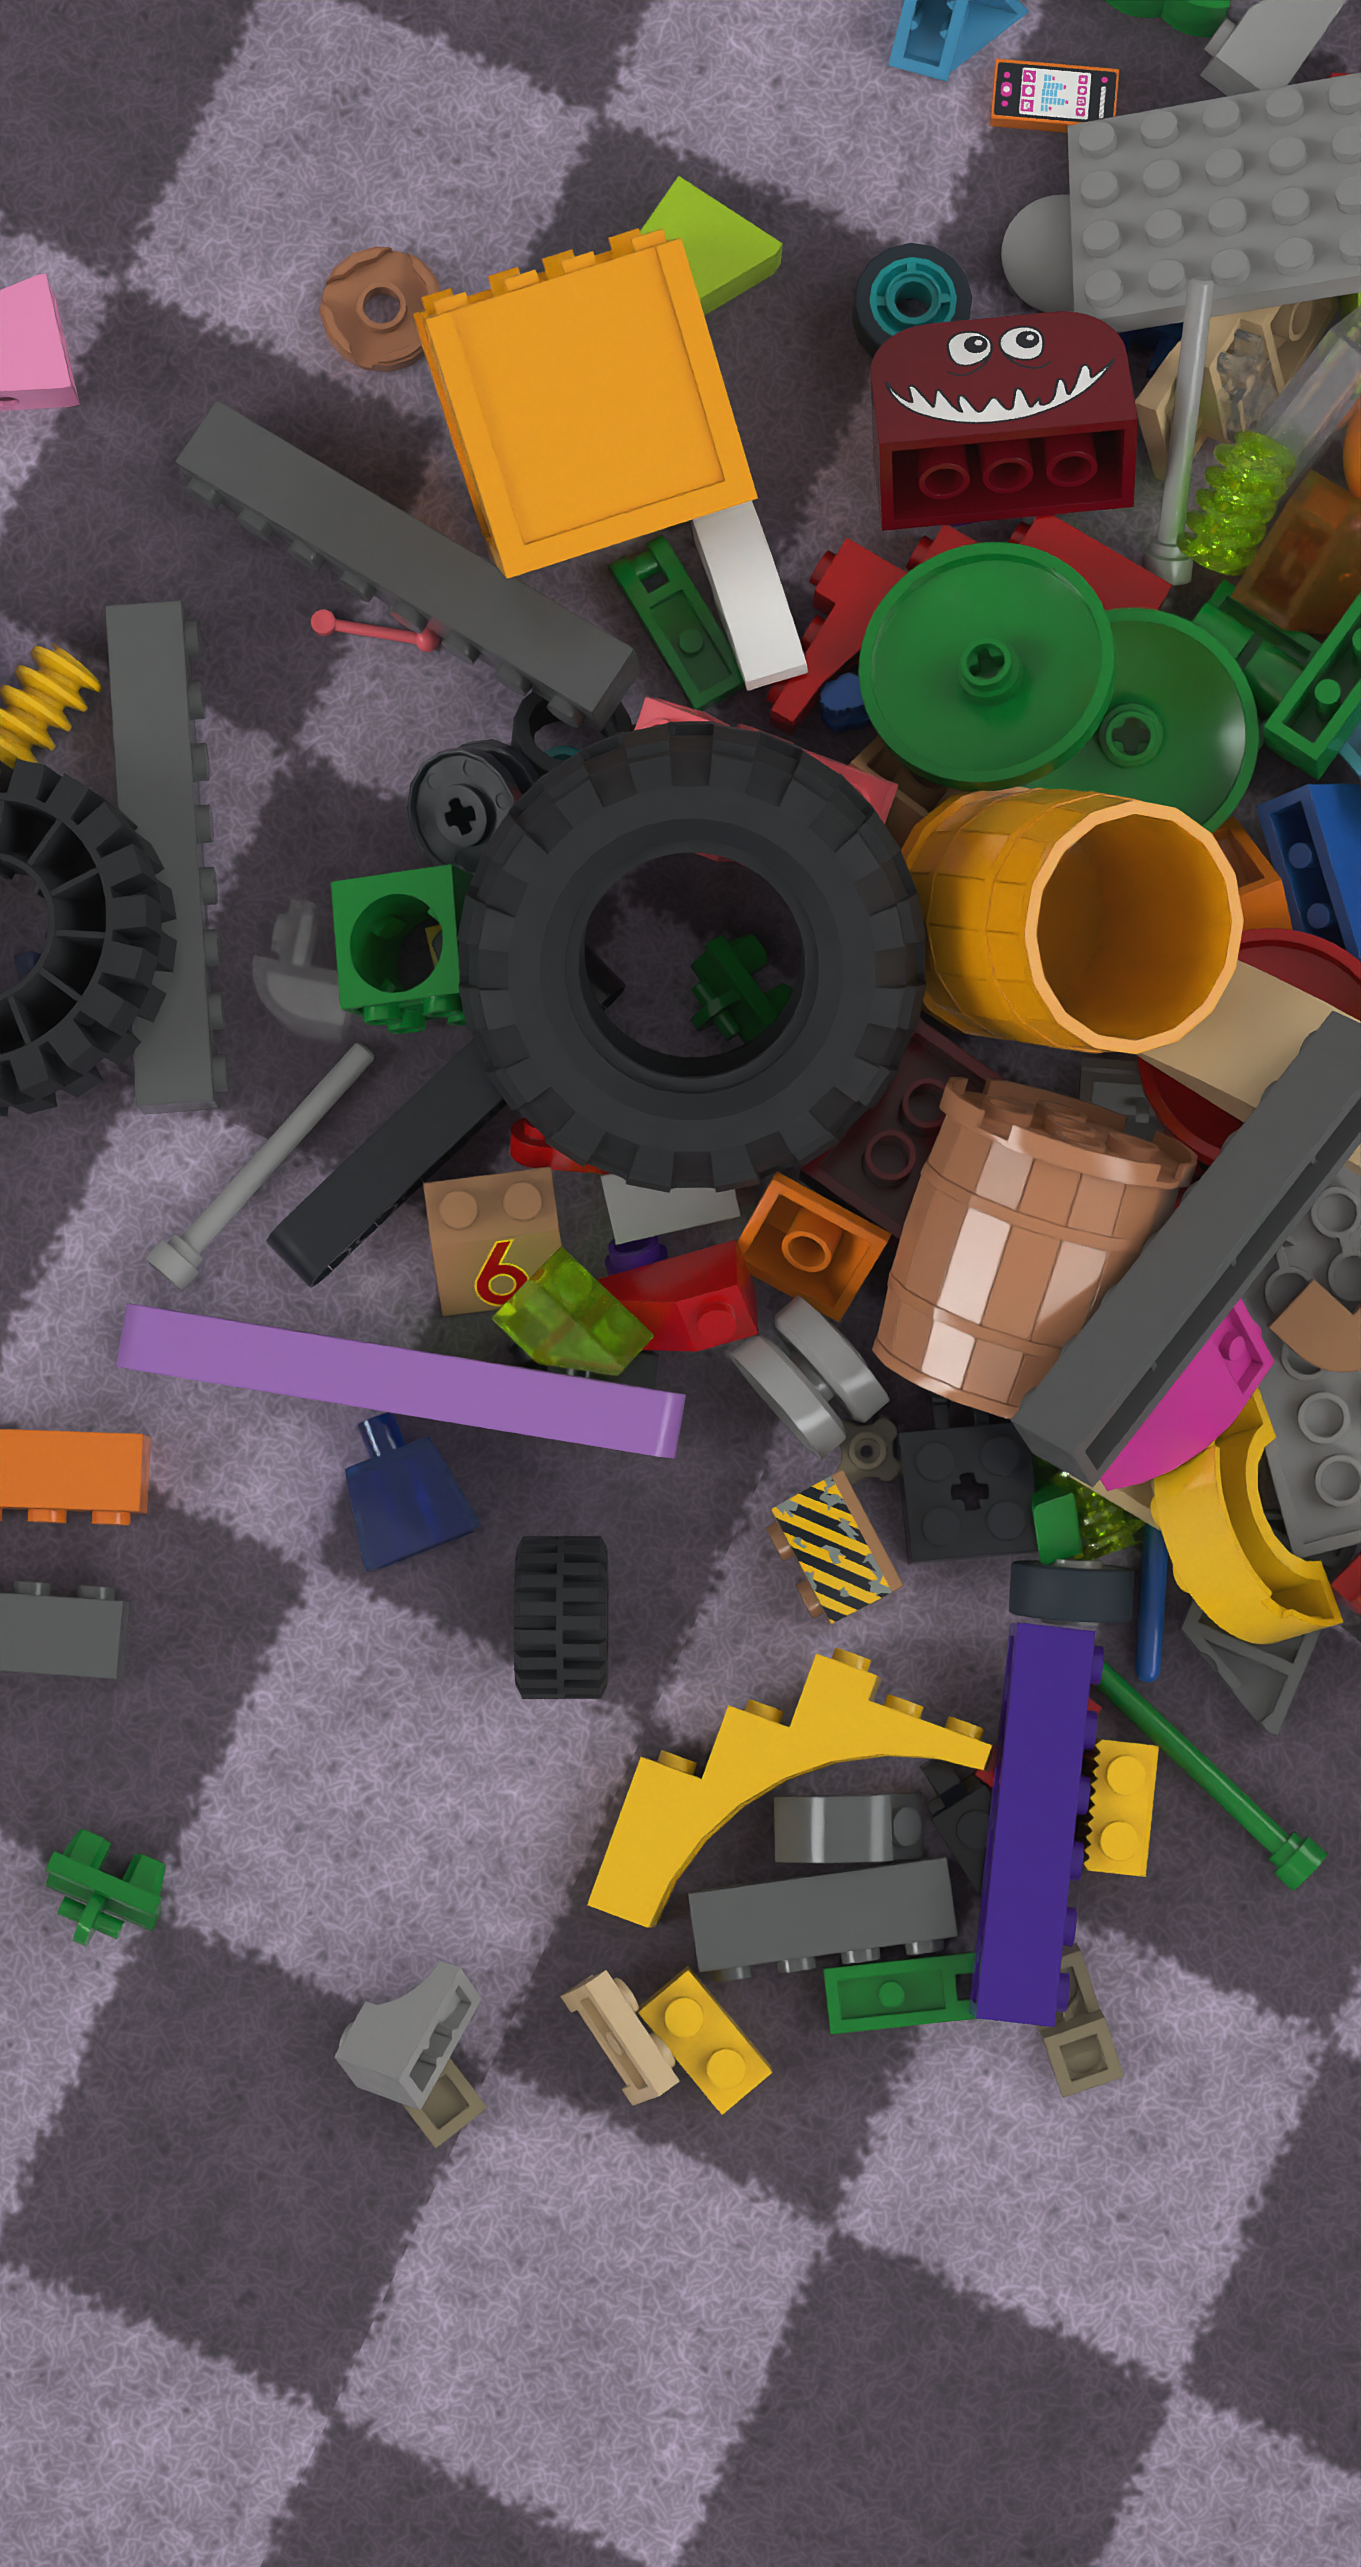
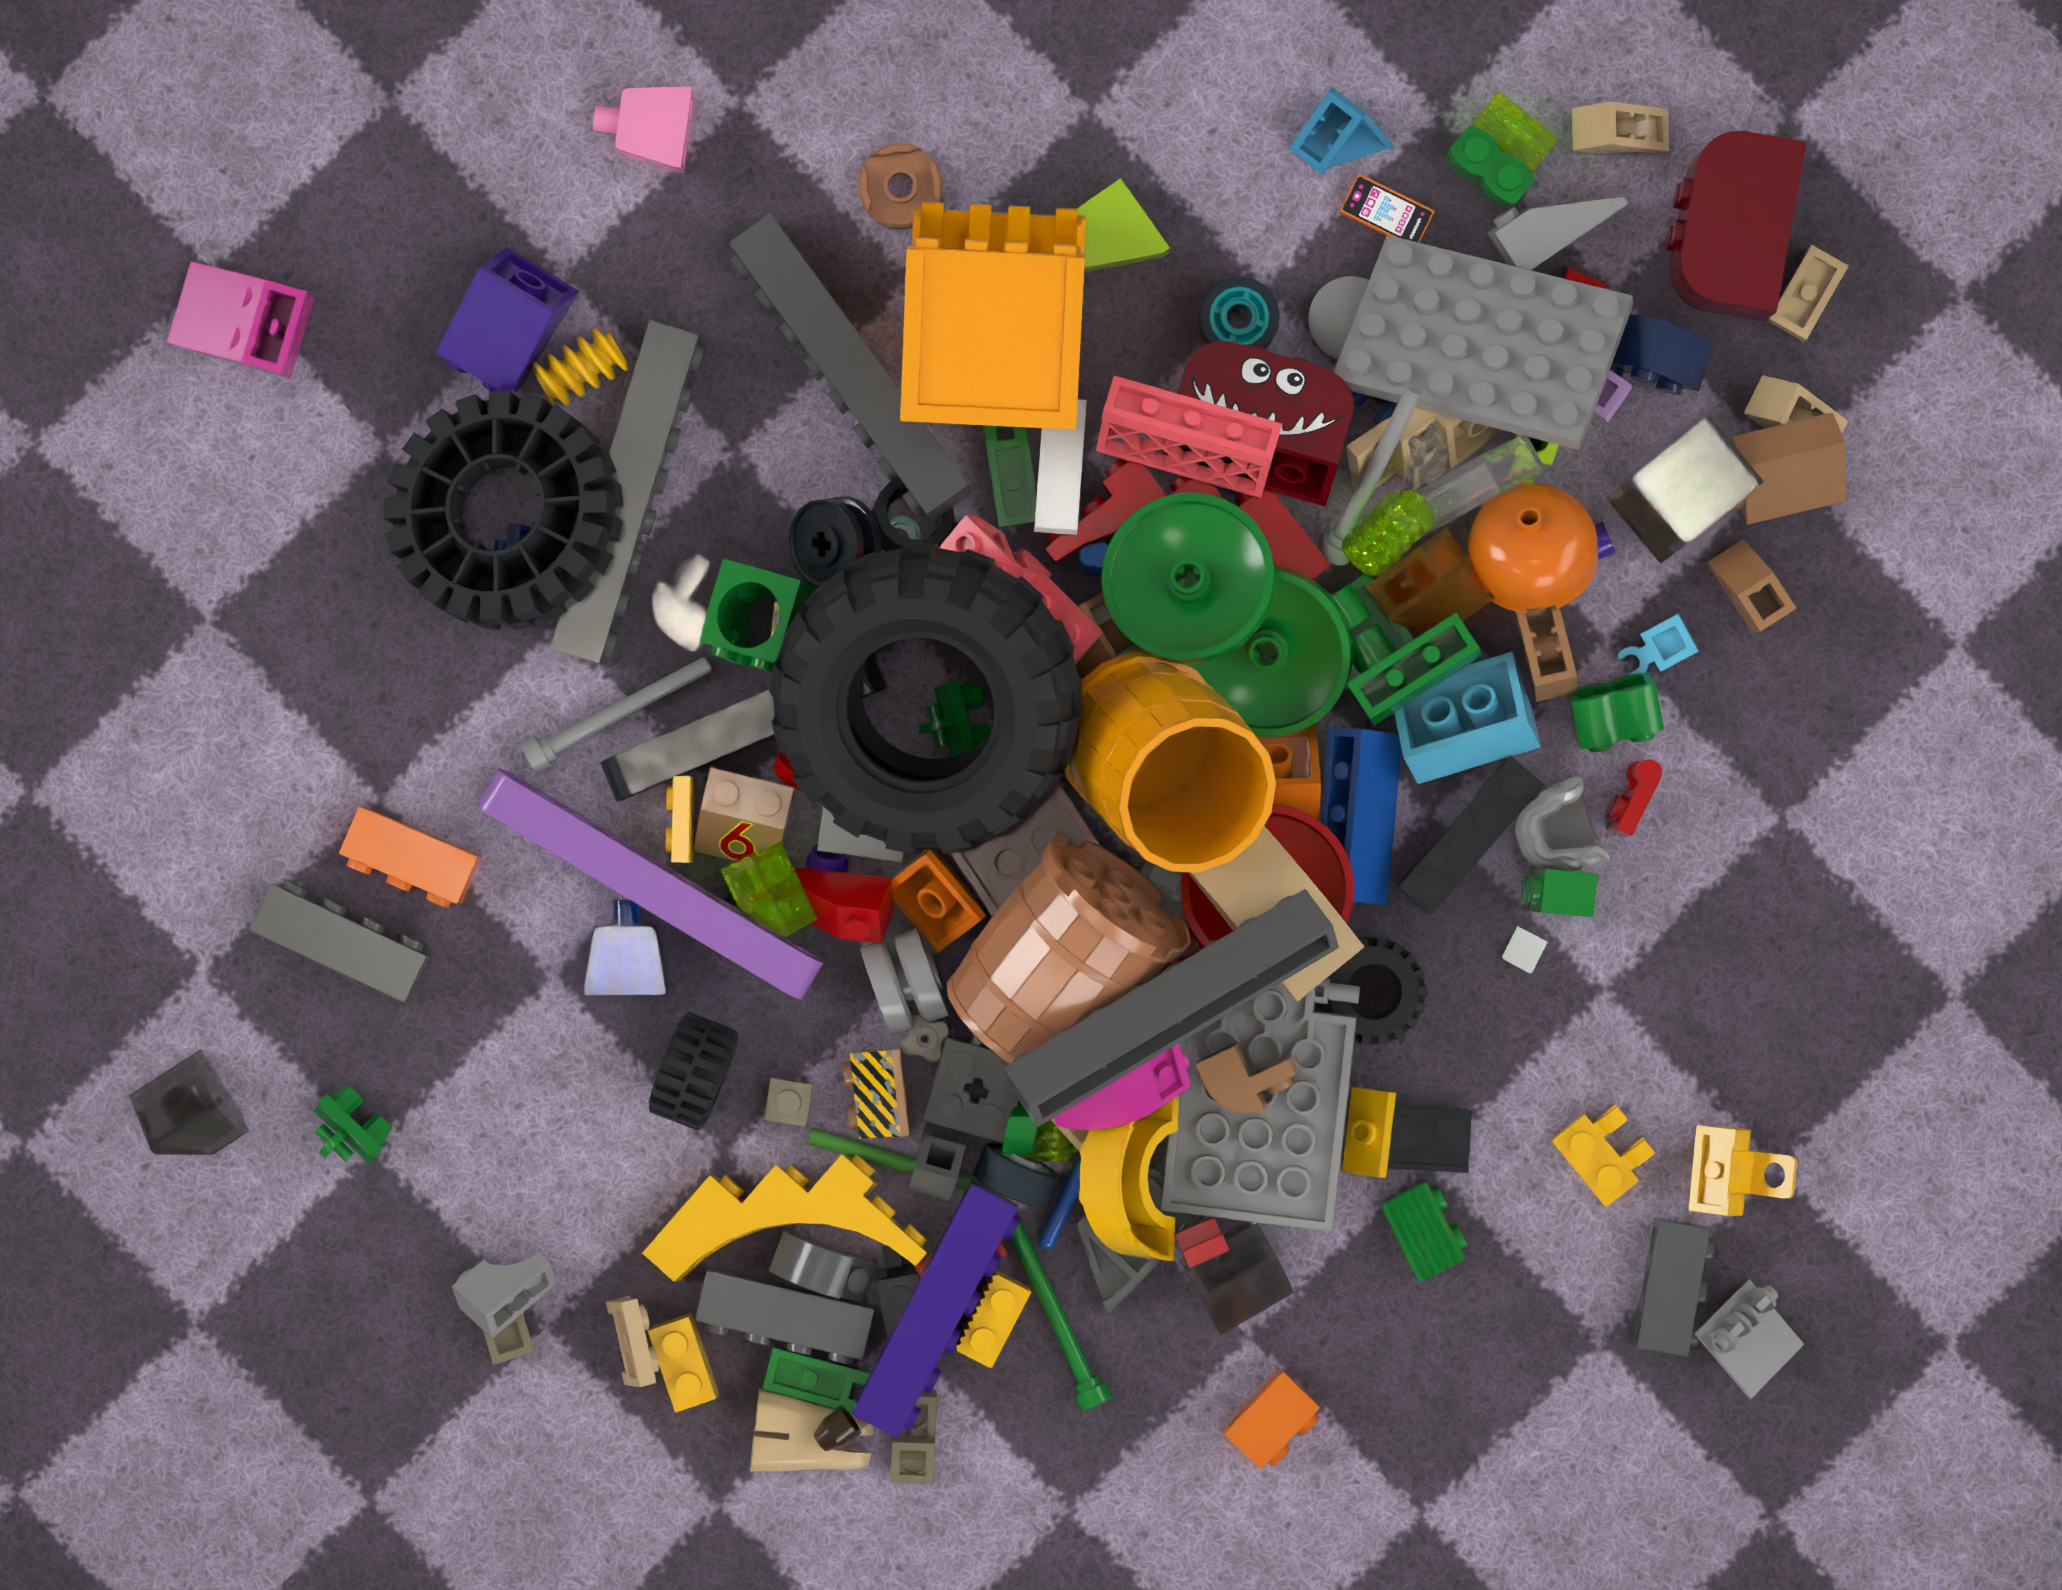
camera: 20 degrees right, 5 degrees up
(325, 624) = (787, 377): coral hinge -> none
(400, 1252) = (680, 801): none -> yellow plate
(710, 1614) = (788, 1102): none -> dark tan plate
(885, 1639) = (873, 1154): none -> bright green bar
(912, 441) = (1183, 420): none -> coral fence
(915, 2079) = (786, 1439): none -> tan piece
(955, 1613) = (938, 1161): none -> dark grey brick
(961, 2050) = (836, 1430): none -> dark brown hose

